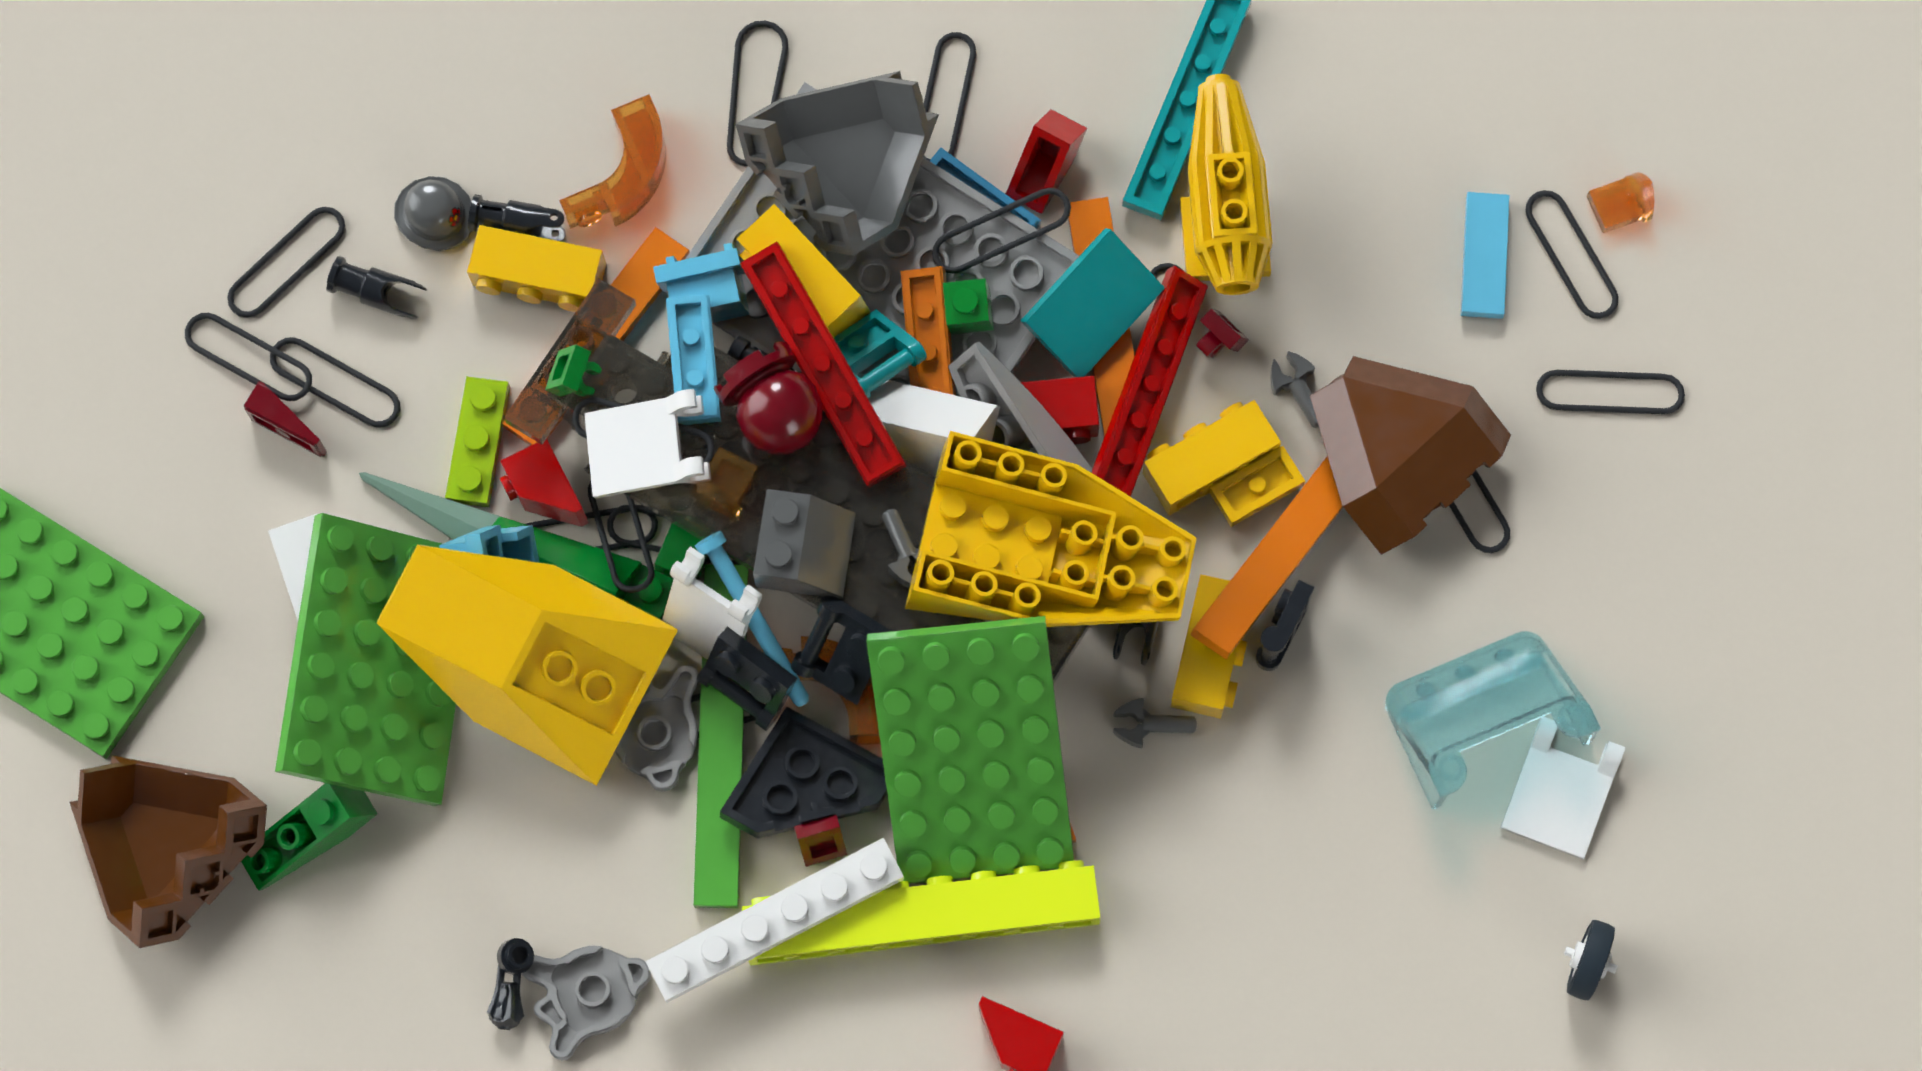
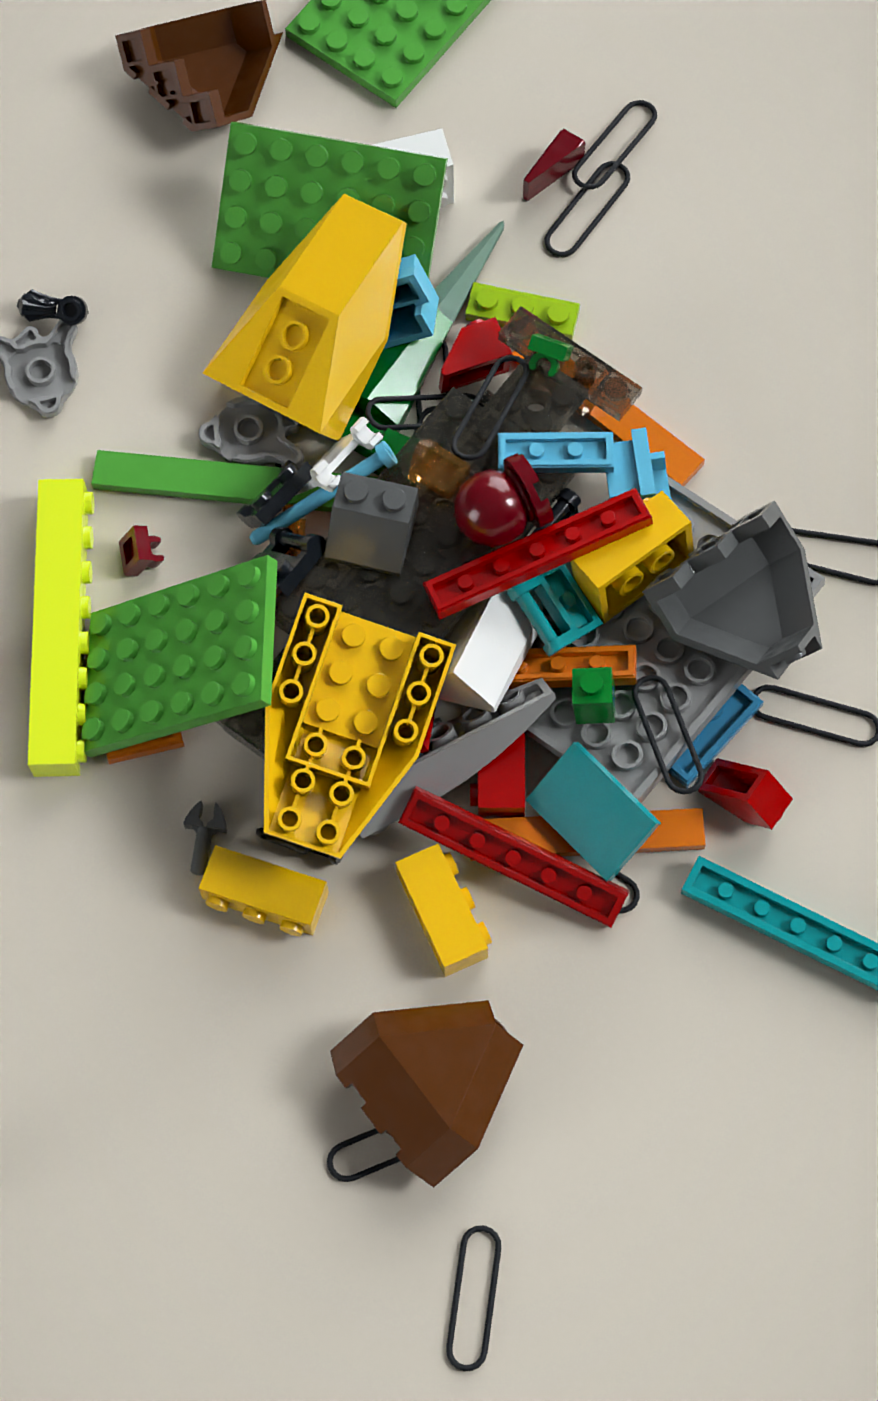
camera: 95 degrees right, 5 degrees down
(297, 274) = (689, 187): black piece -> none
(308, 831) = (199, 166): green slope -> none
(367, 285) = (667, 234): black piece -> none
(433, 213) = (732, 289): dark grey hat -> none
(516, 217) = (719, 346): black piece -> none
(534, 267) = (671, 360): yellow brick -> none
(635, 177) = (760, 449): clear orange arch -> none
(640, 445) = (476, 399): white flag -> none
(775, 920) = (65, 502): white plate -> none
(804, 777) = (189, 531): black plate -> none
(903, 545) = (370, 608): dark grey bar -> none
(1221, 334) = (561, 932): dark red tile -> none
(1228, 204) = (670, 935): yellow piece -> none
(1257, 486) = (411, 949): yellow plate -> none
(1270, 564) = (324, 940): orange tile -> none
(1287, 617) = (275, 955): black plate -> none
(1297, 385) = (506, 999): dark grey bar -> none
(1478, 700) = (179, 1128): clear light blue windscreen -> none
(1485, 255) = (622, 1192): medium azure tile -> none
(1556, 262) = (653, 1284): black piece -> none
(1560, 794) = (85, 1192): white flag -> none
(1623, 201) = (666, 1334): clear orange tile -> none

